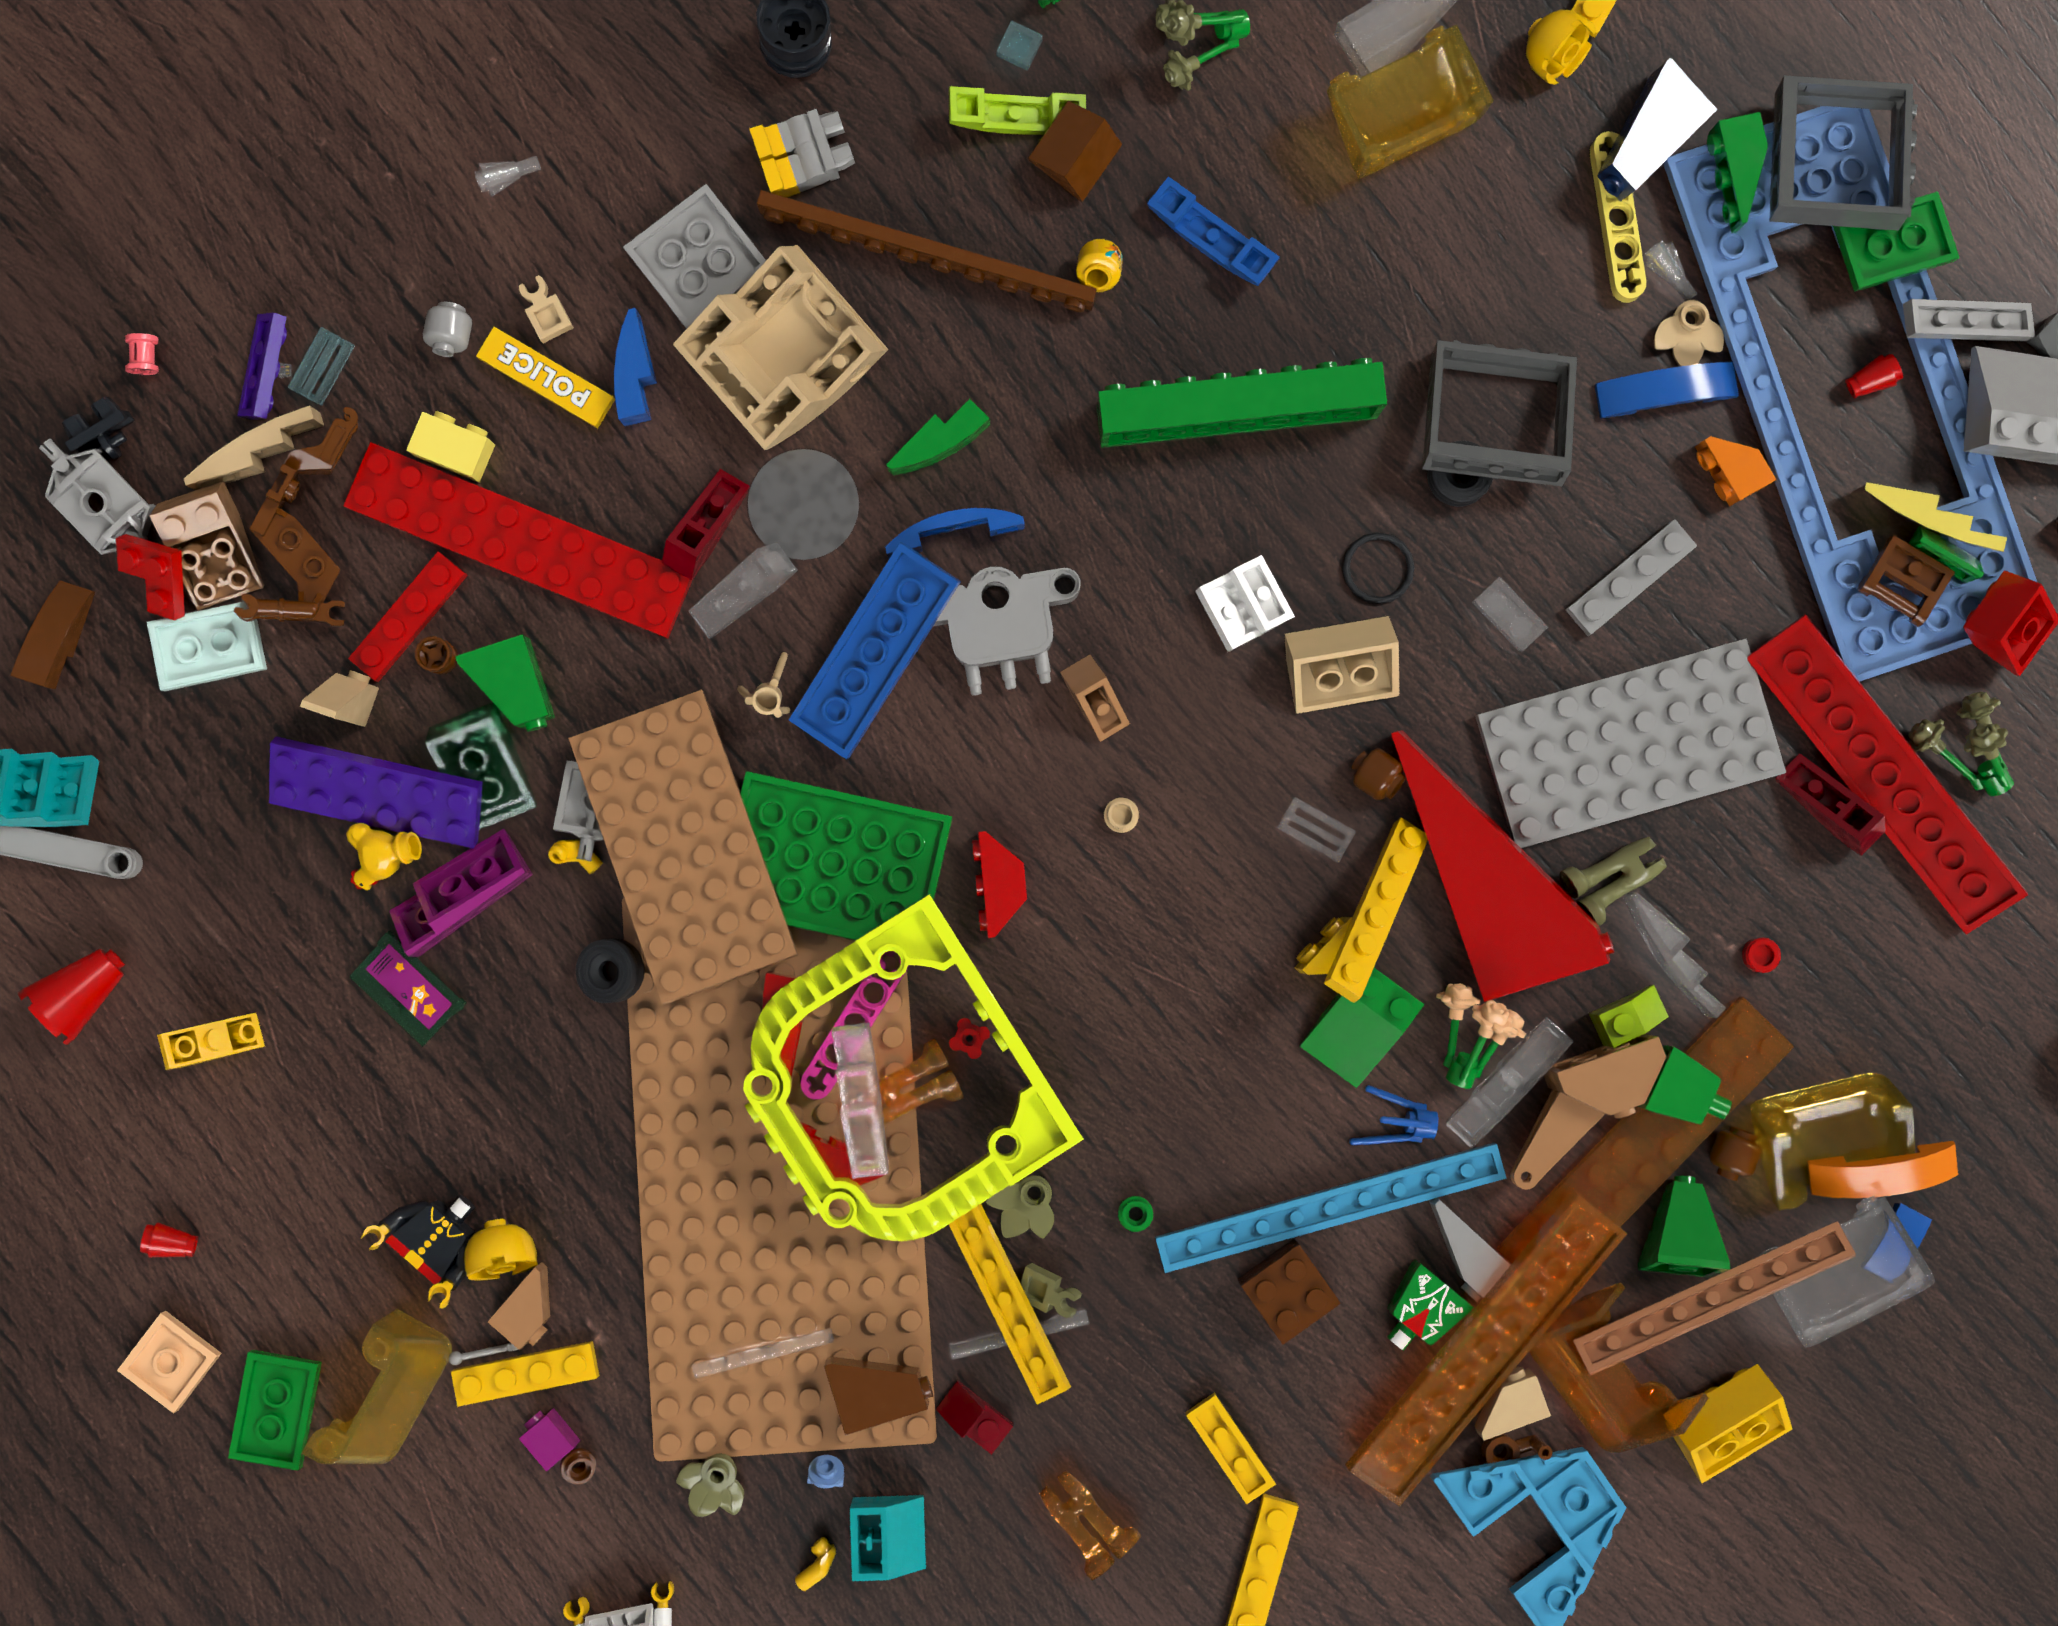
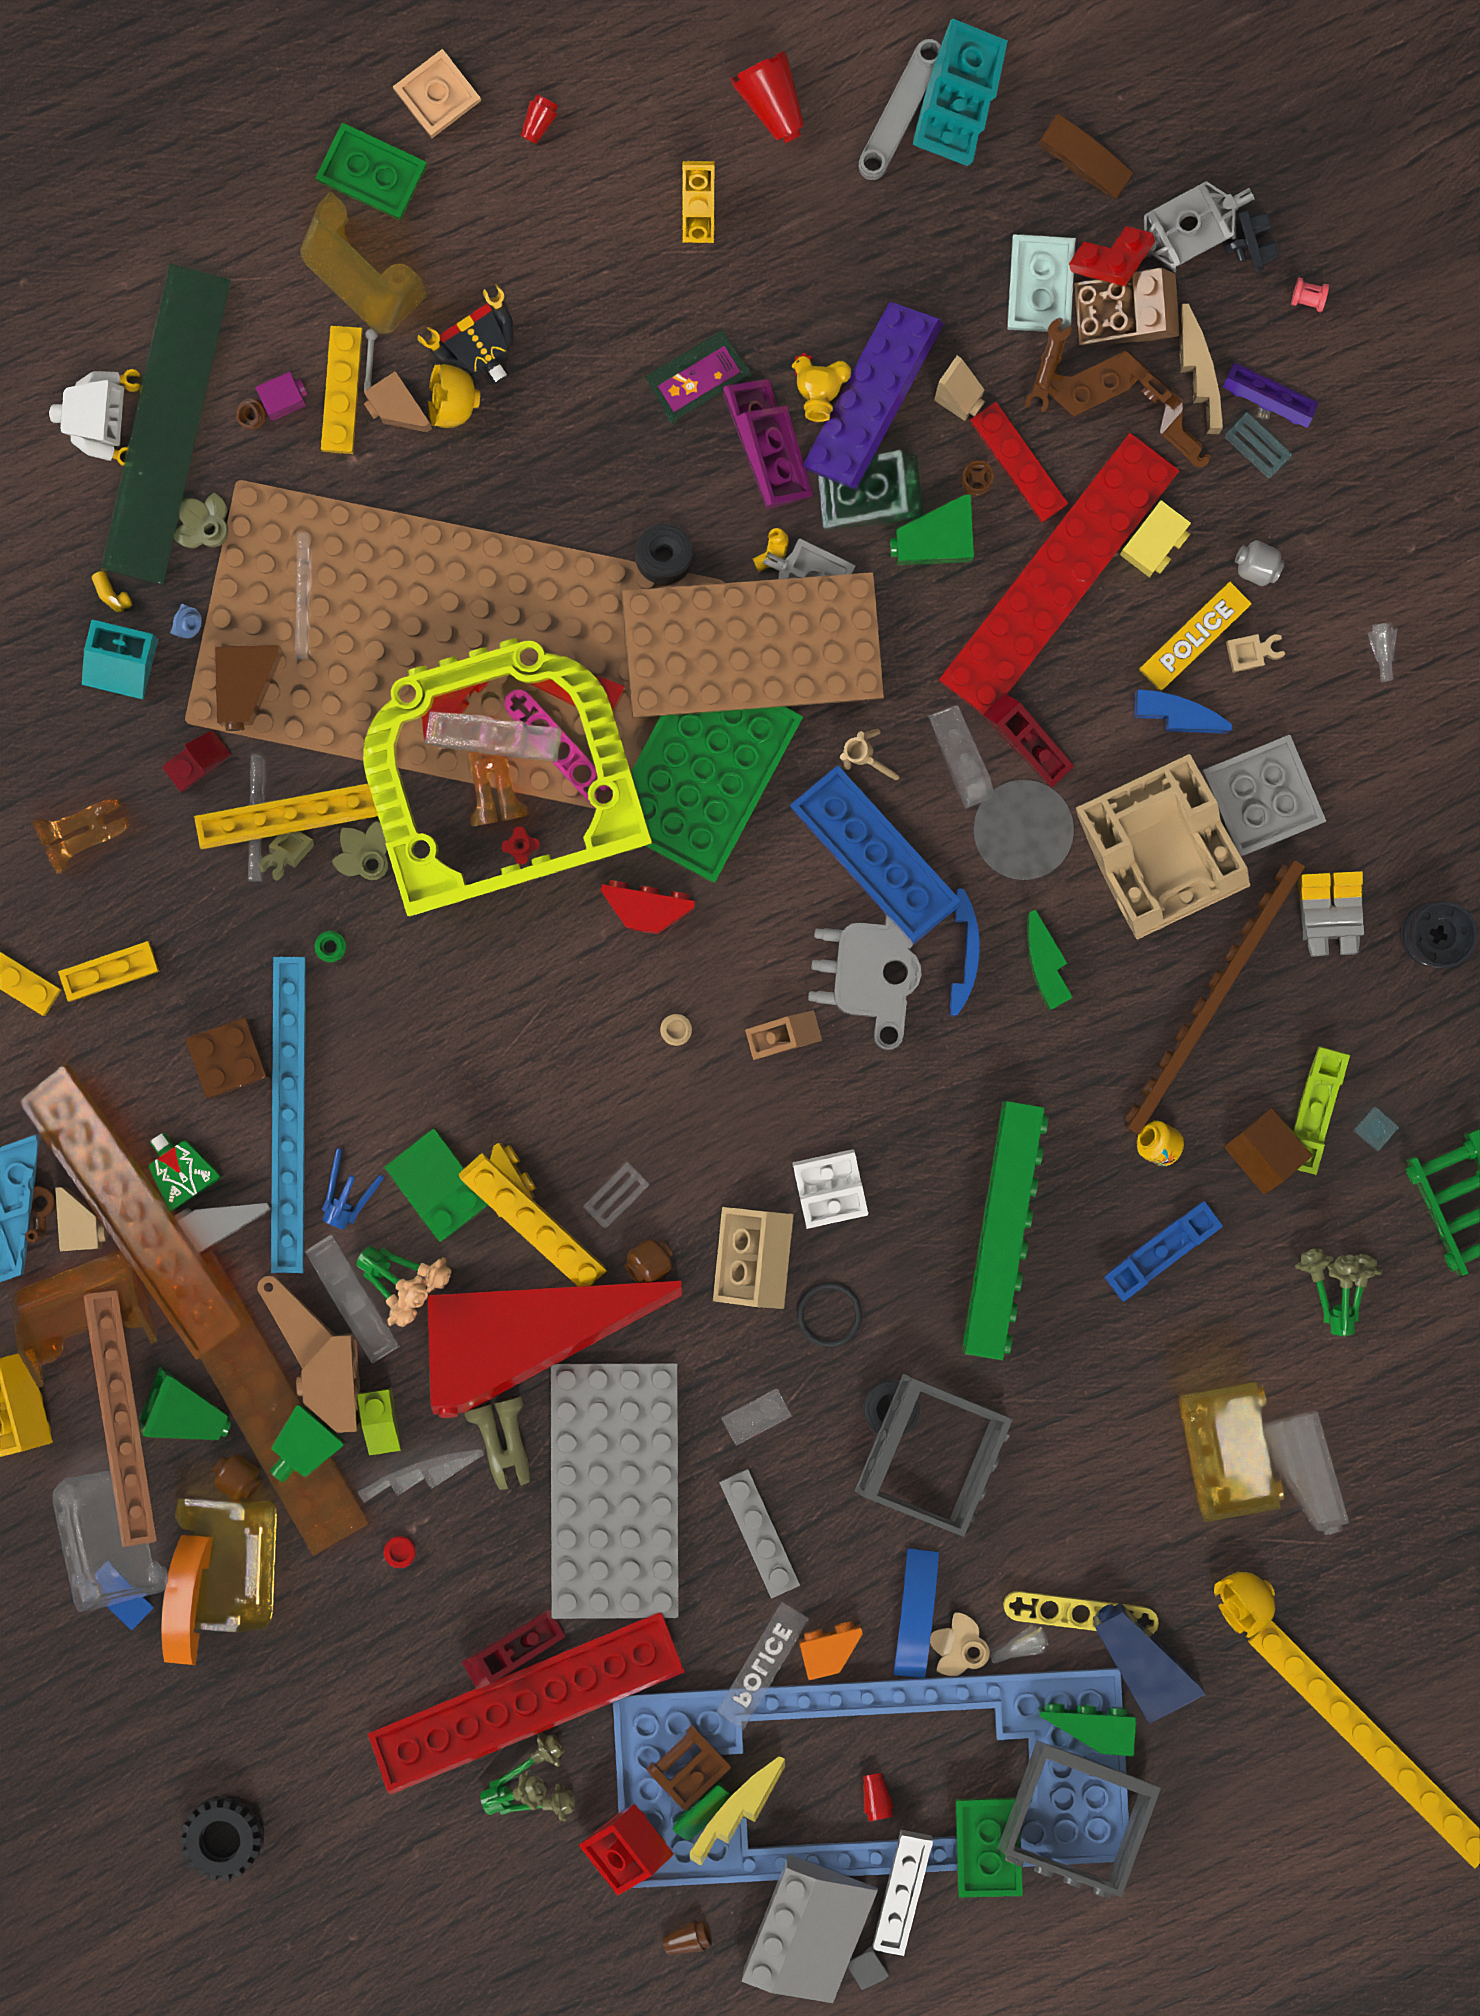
camera: 105 degrees right, 0 degrees up
(614, 1558) = (165, 424): none -> clear green plate
(1773, 534) = (762, 1665): none -> clear tile

